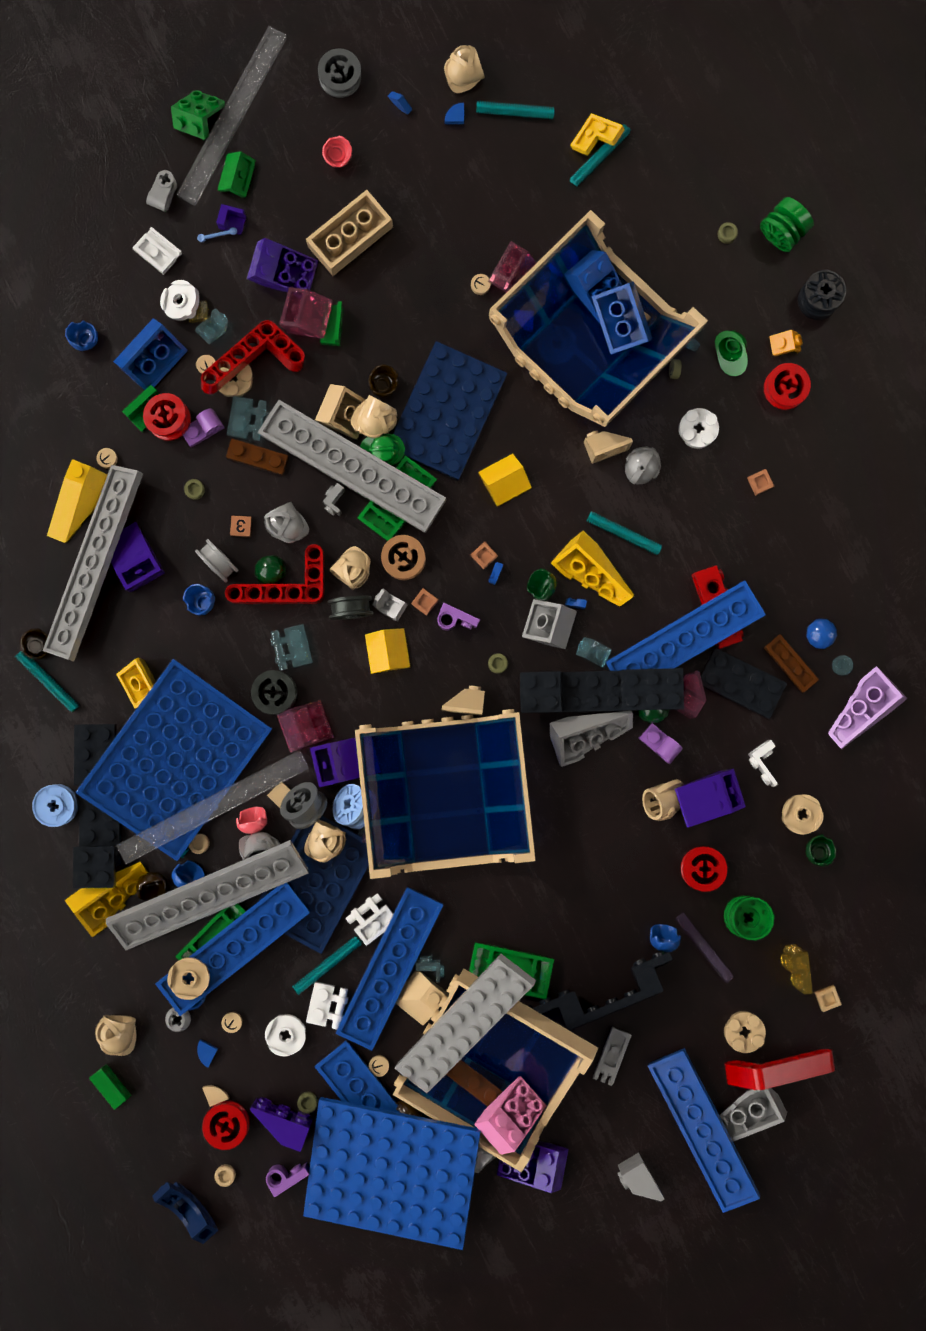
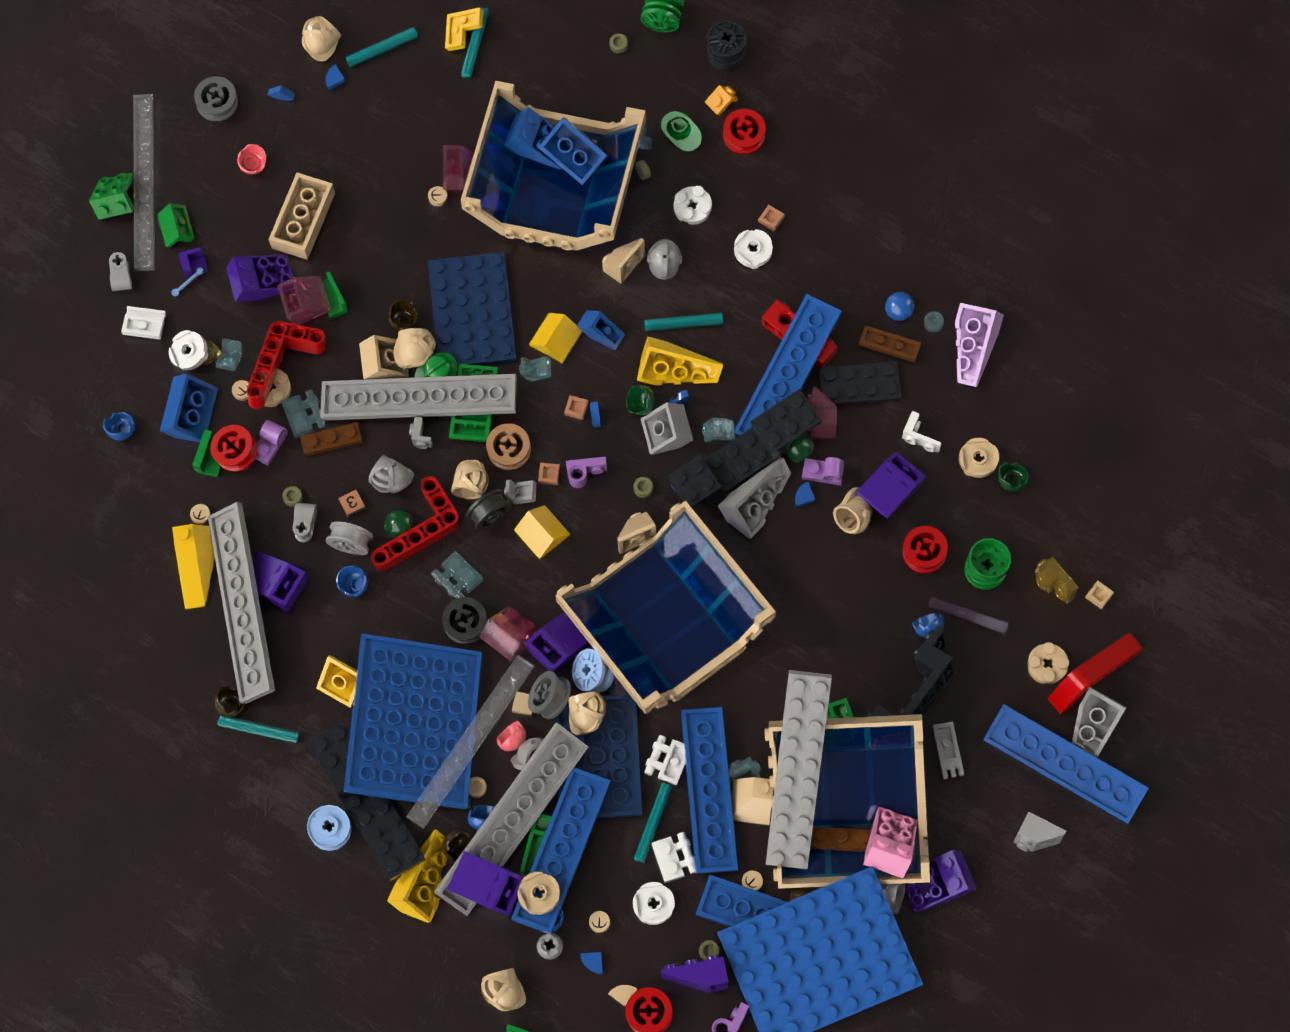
camera: 25 degrees left, 15 degrees down
(153, 939) = (486, 883): none -> dark purple slope
(192, 517) = (304, 518): none -> light grey piece
(469, 499) = (535, 369): none -> clear light blue bracket
(547, 497) = (601, 329): none -> blue slope
(630, 755) = (804, 495): none -> blue tile
(731, 491) = (753, 238): none -> white plate

